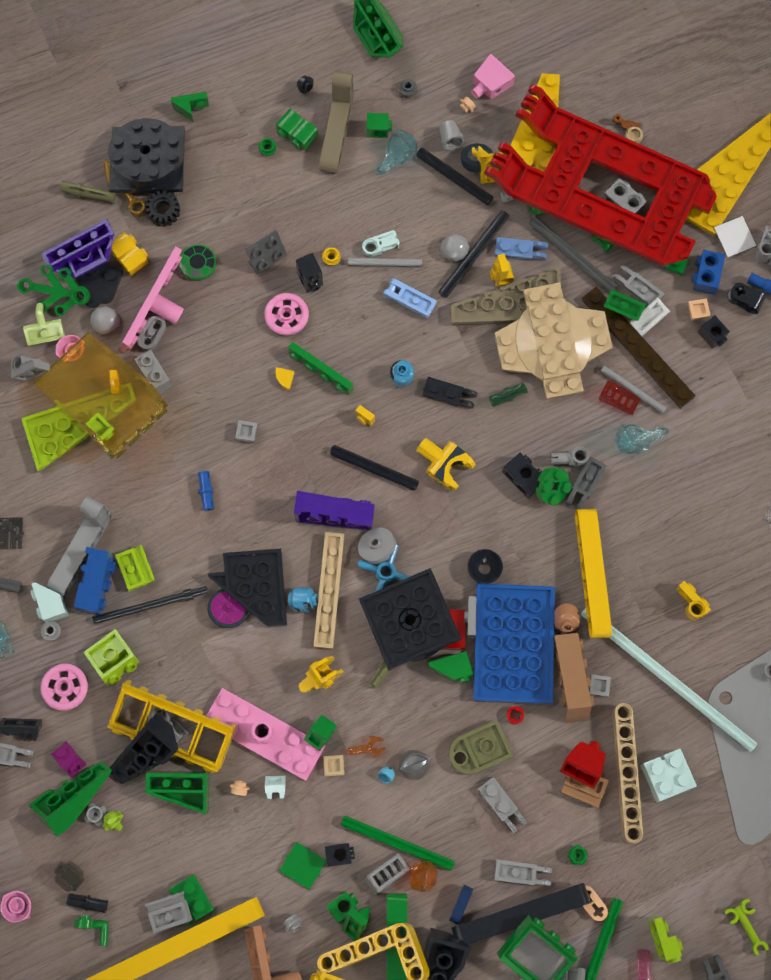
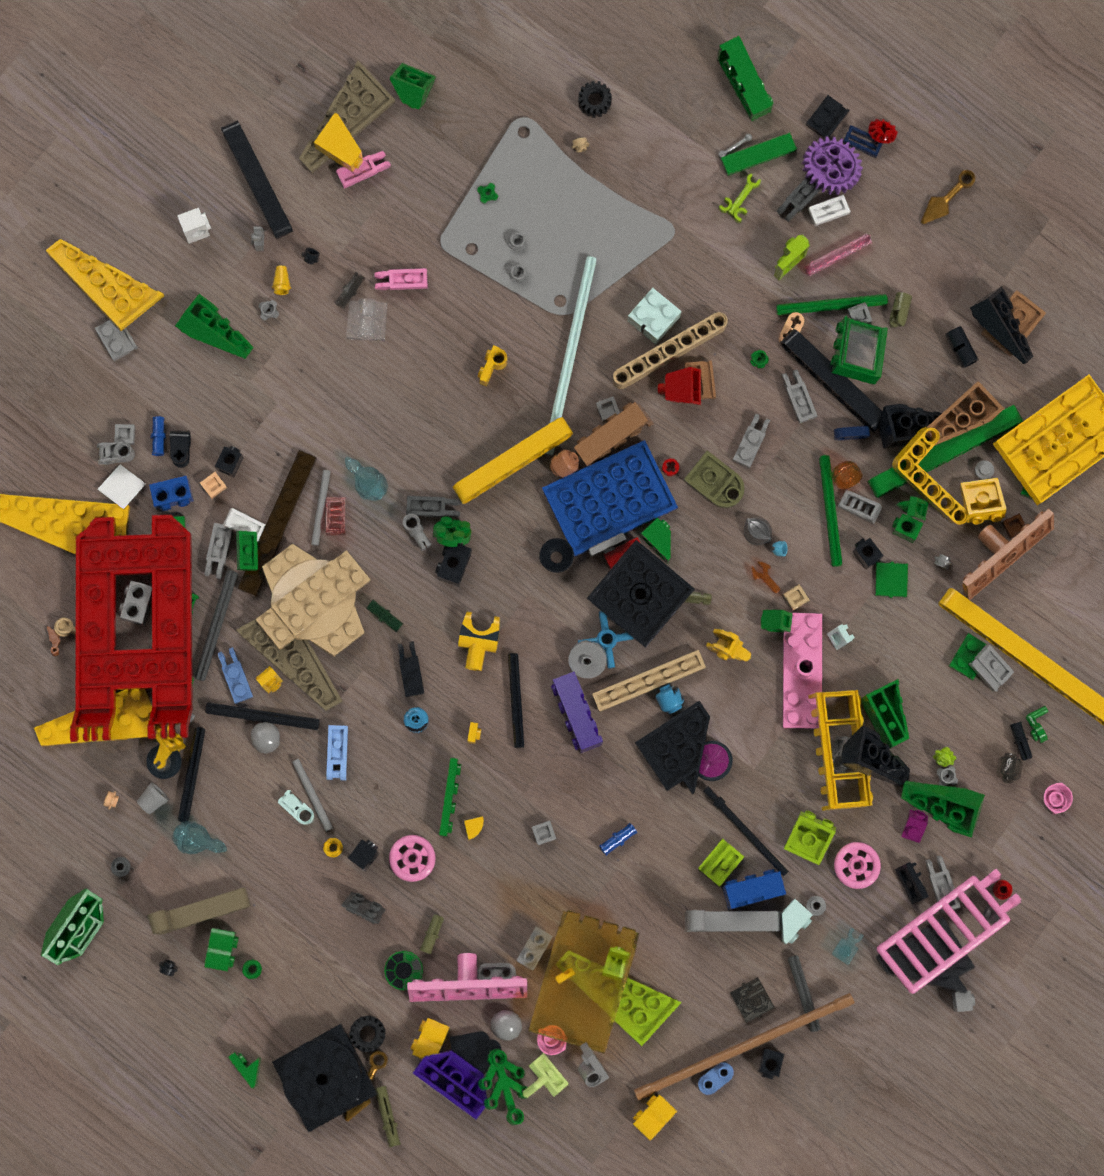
camera: 120 degrees left, 5 degrees up
(214, 298) = (432, 934): none -> olive axle
(239, 788) = (859, 665): light nougat plate -> none
(378, 125) = (176, 873): green brick -> none
(492, 79) = (72, 790): bright pink torso -> none

